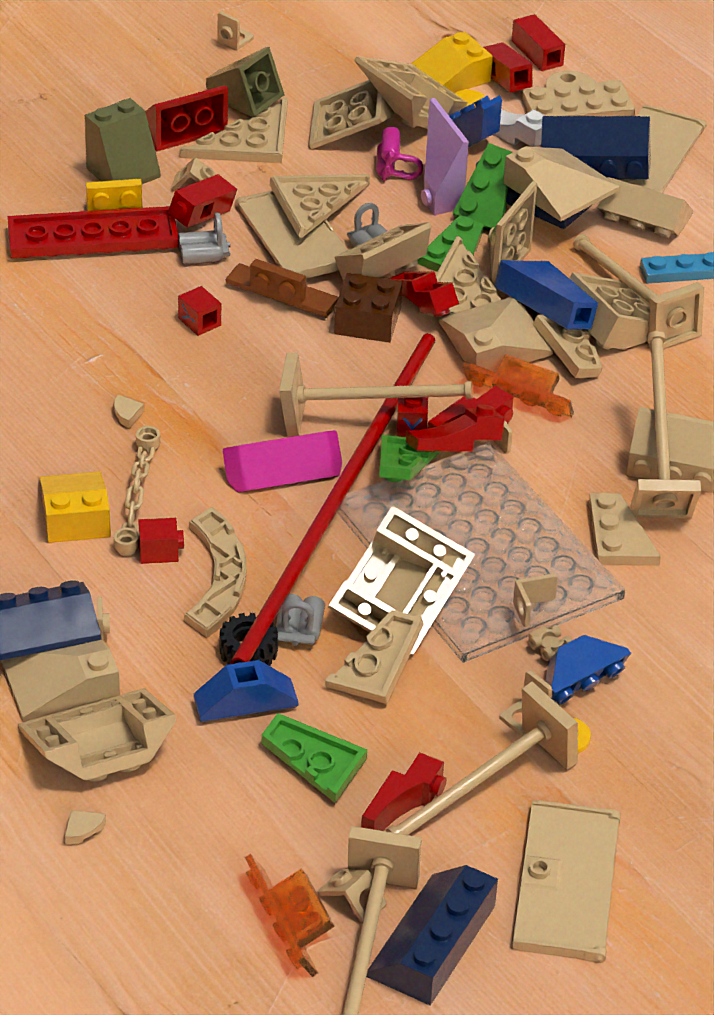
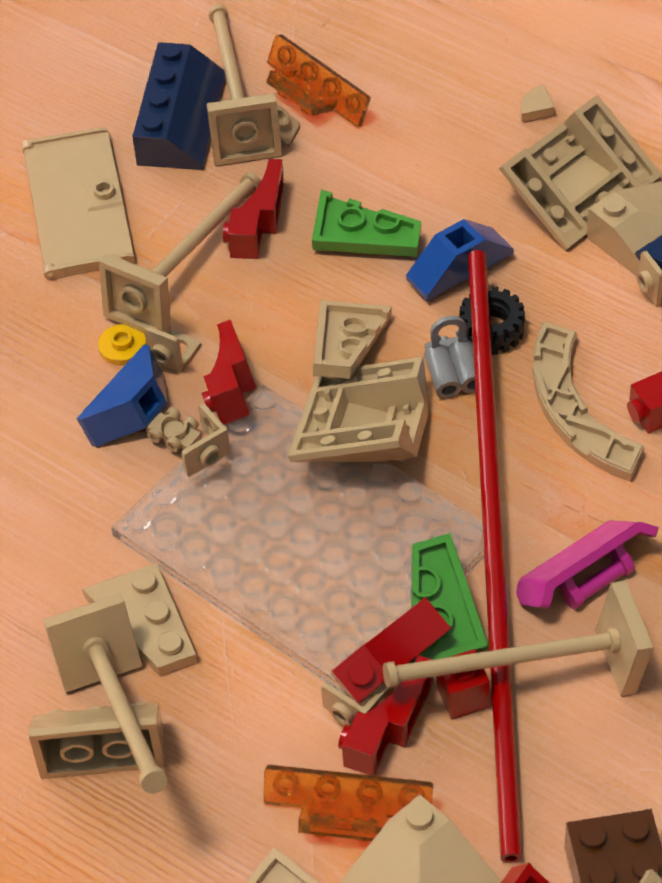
camera: 165 degrees right, 10 degrees up
(499, 636) = (228, 378): none -> red slope

